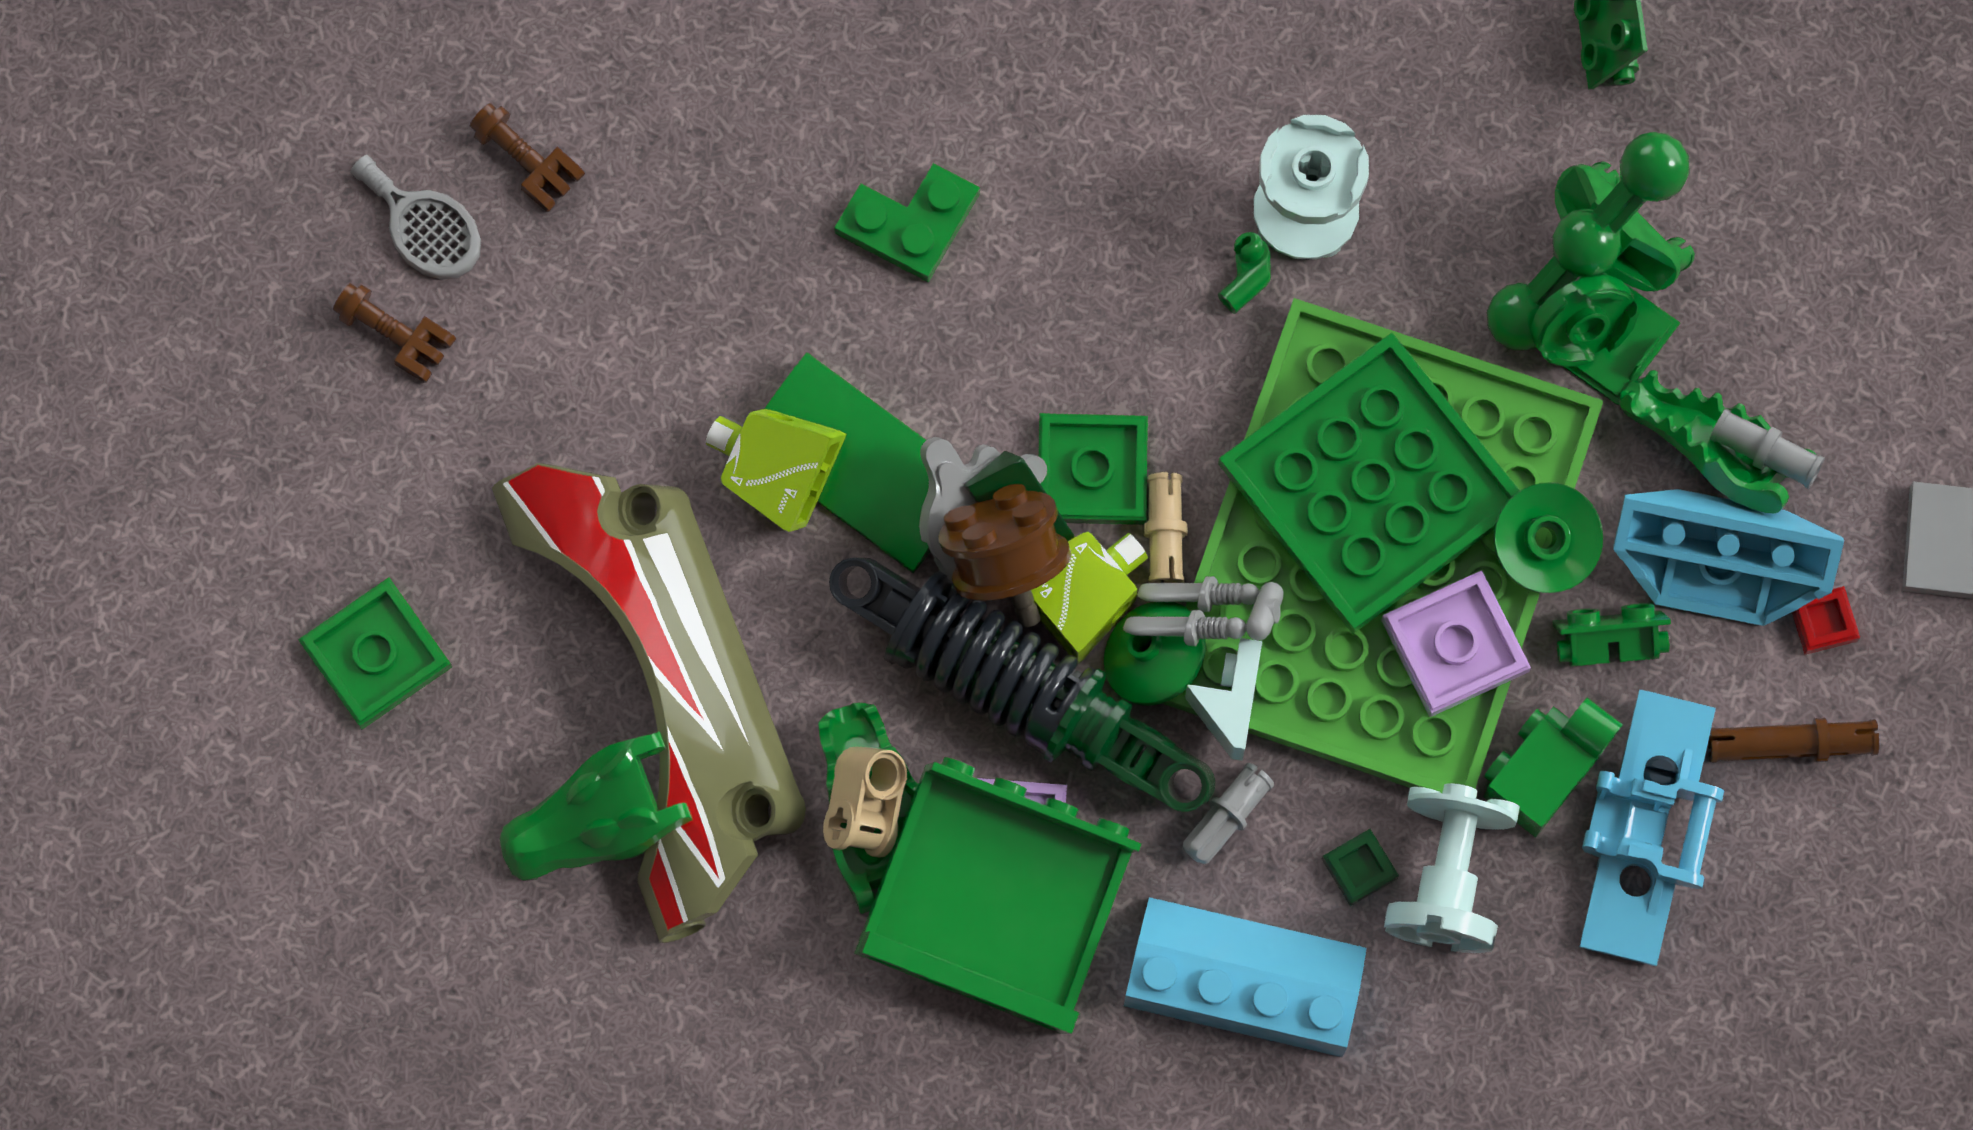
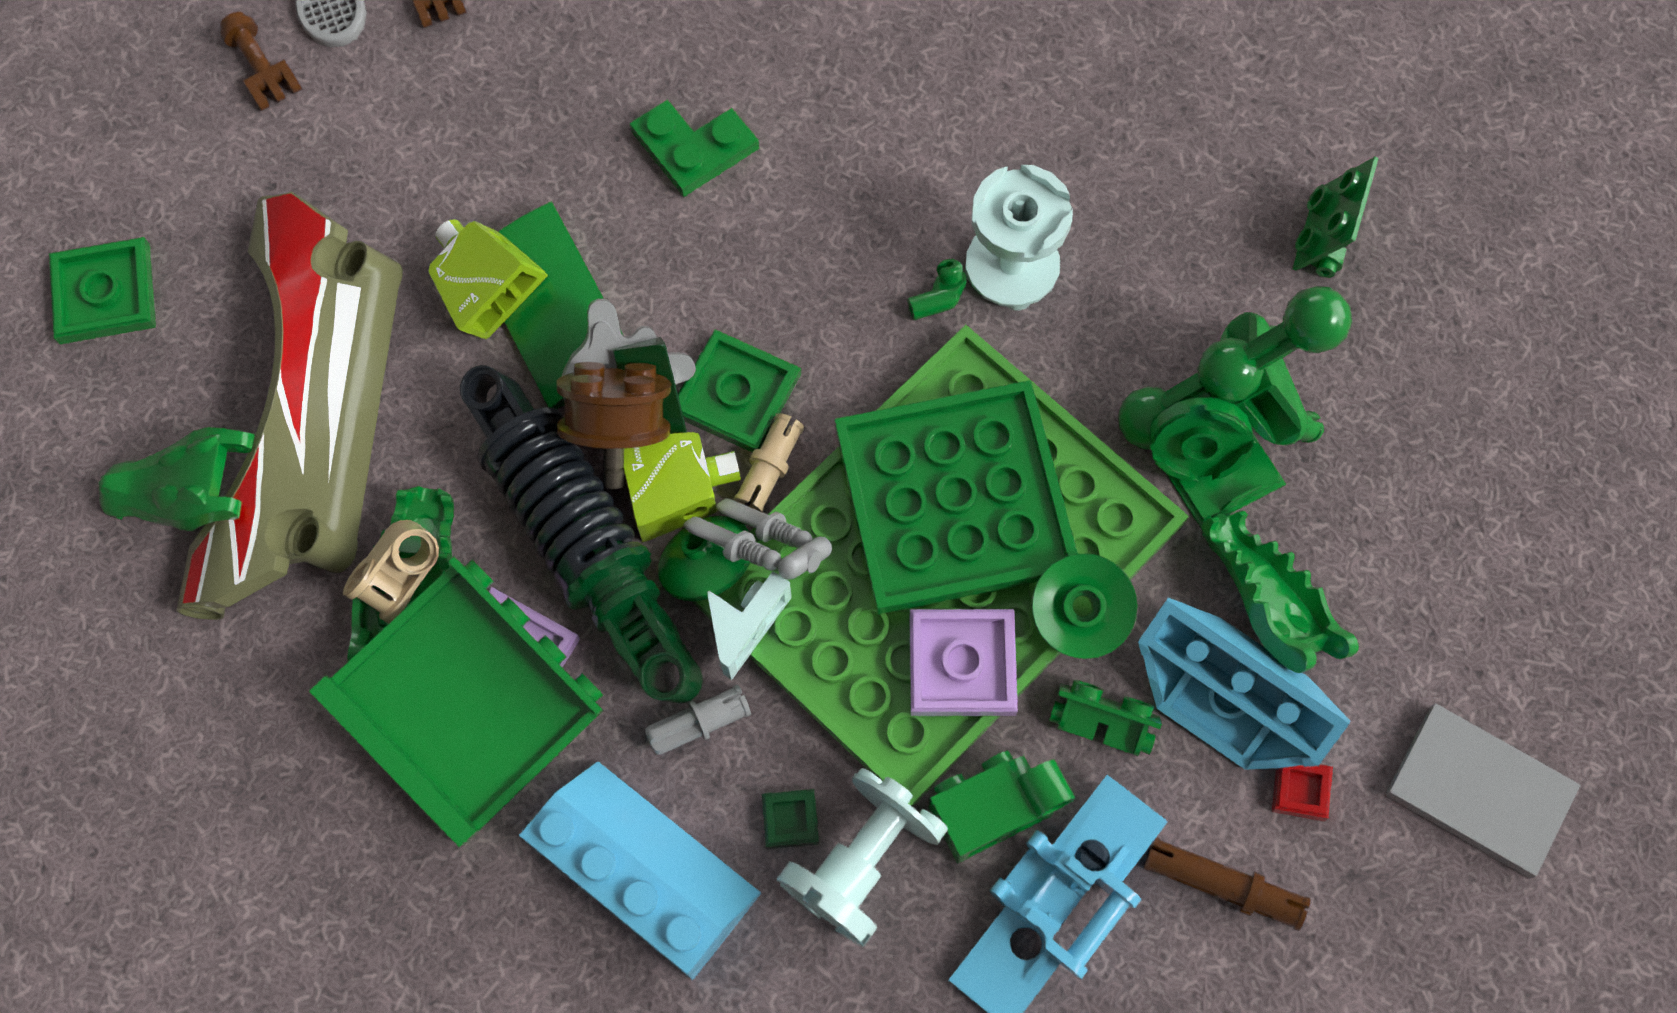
camera: 25 degrees right, 5 degrees down
(1767, 448) = (1315, 616): light grey pin -> none

